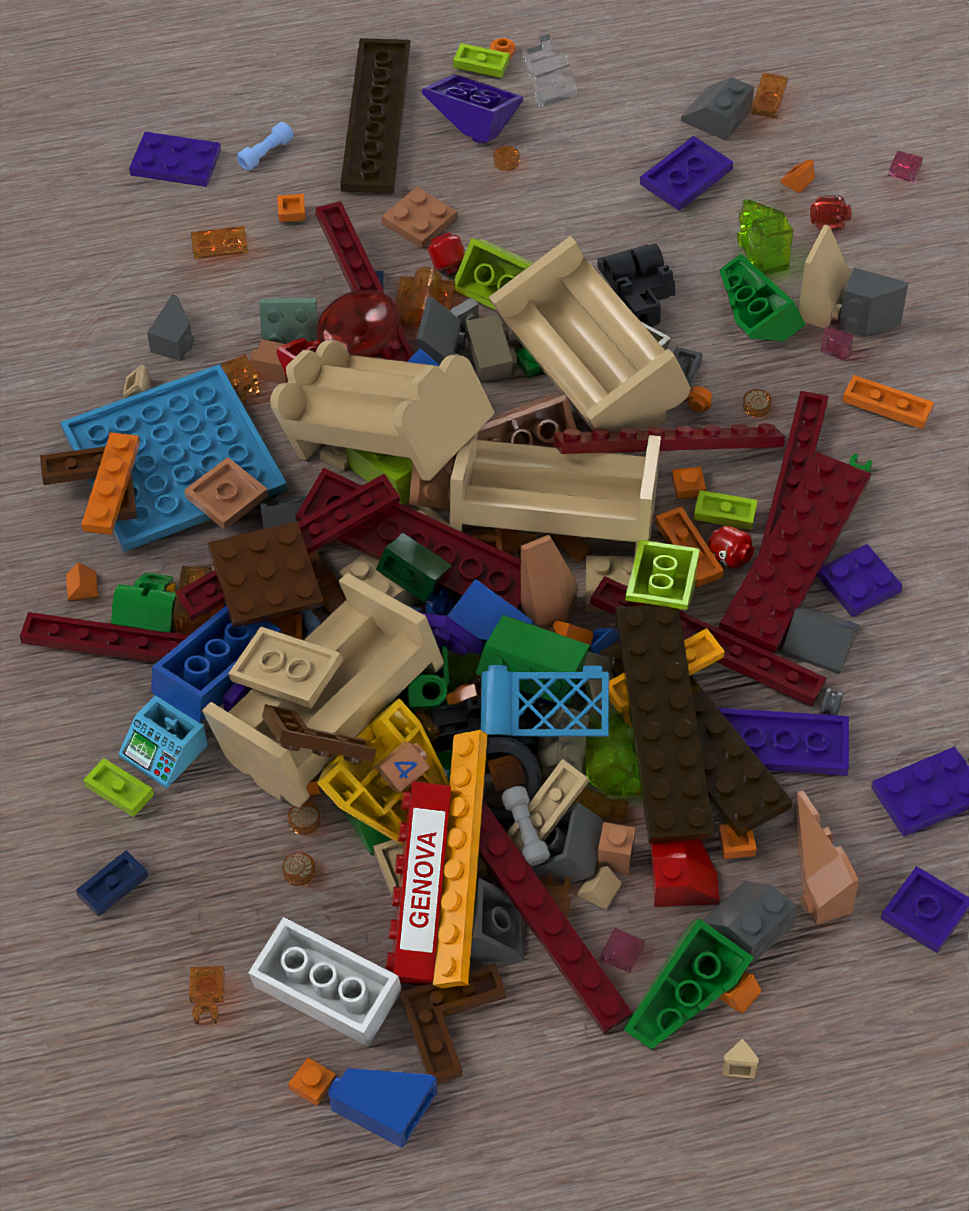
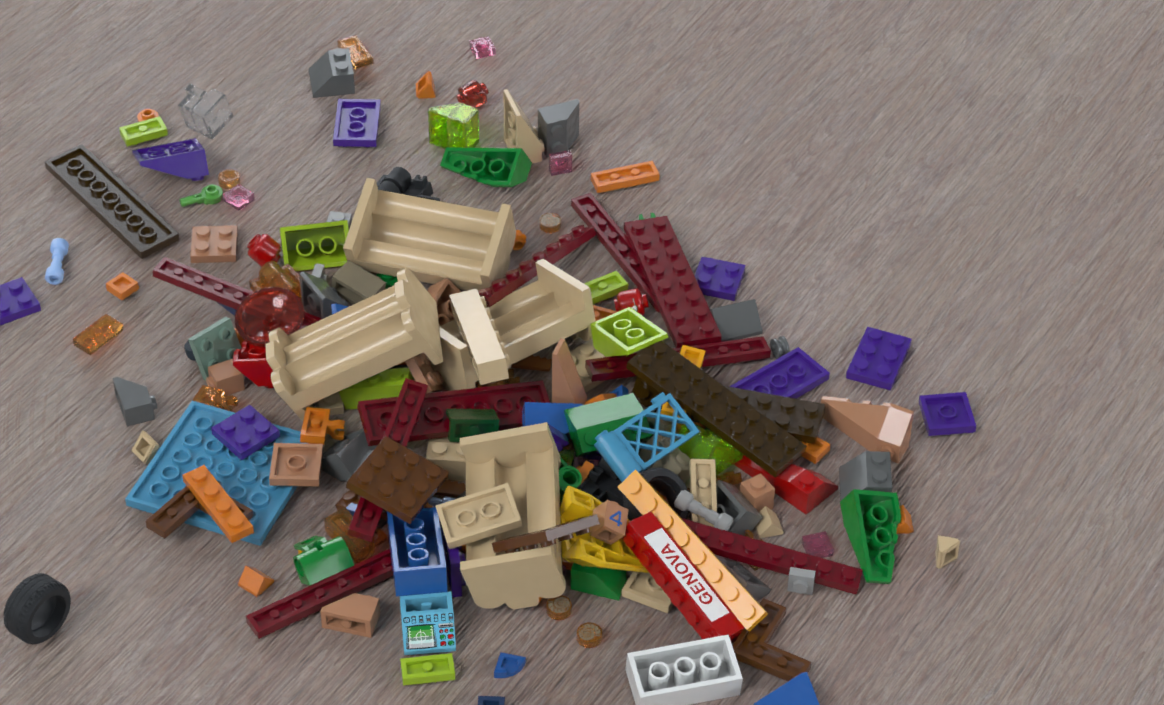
camera: 45 degrees left, 10 degrees down
(117, 682) = (352, 615): none -> nougat slope
(194, 841) = (508, 665): none -> blue tile
(224, 429) = (245, 432): none -> dark purple plate
(287, 466) = (318, 425): none -> orange plate
(470, 164) = (209, 195): none -> bright green plate
(490, 182) = (238, 197): none -> clear pink plate
(496, 478) = (480, 336): none -> tan brick
(554, 976) = (801, 581): none -> light grey plate

